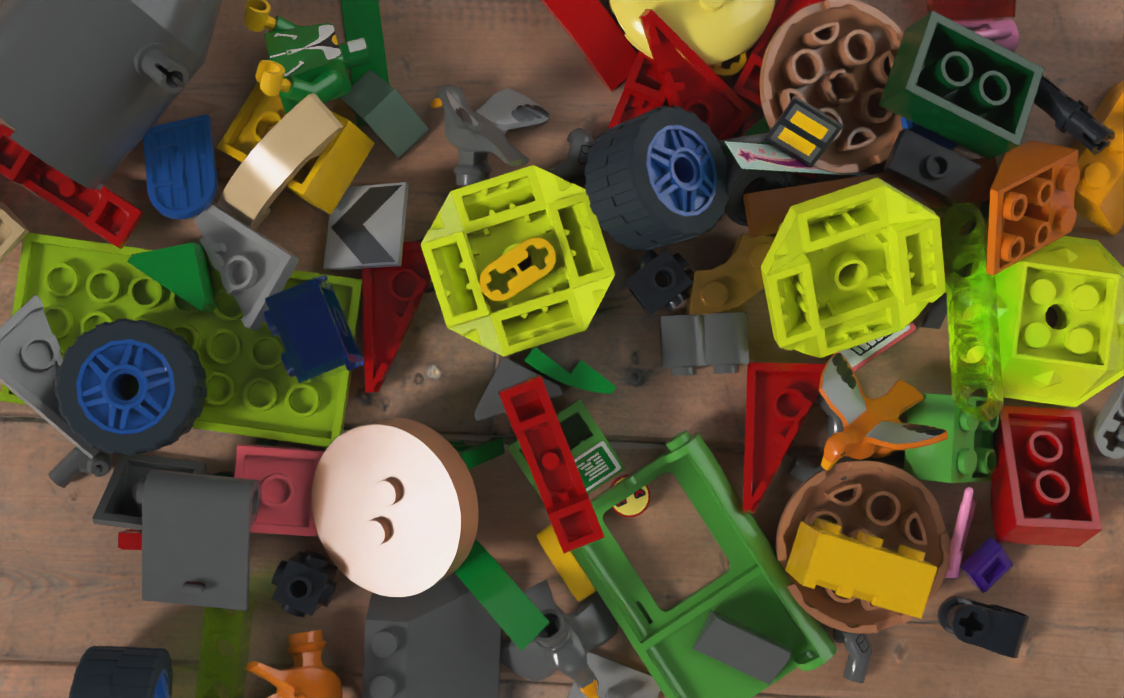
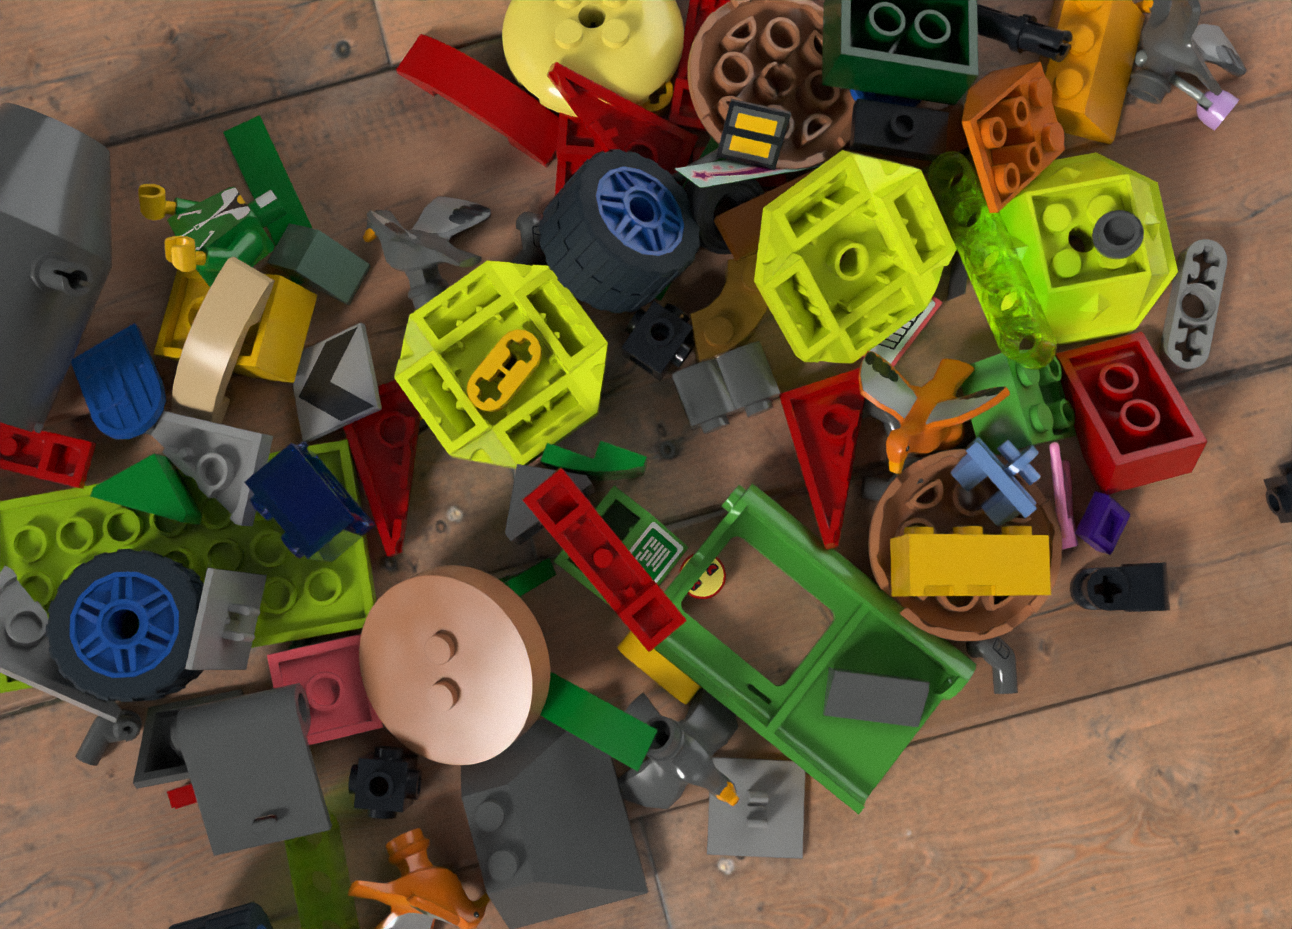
camera: 15 degrees left, 5 degrees down
(212, 407) = (226, 620): none -> light grey piece
(917, 521) = (1012, 496): none -> medium blue hips
(1090, 326) = (1117, 234): none -> dark grey plate

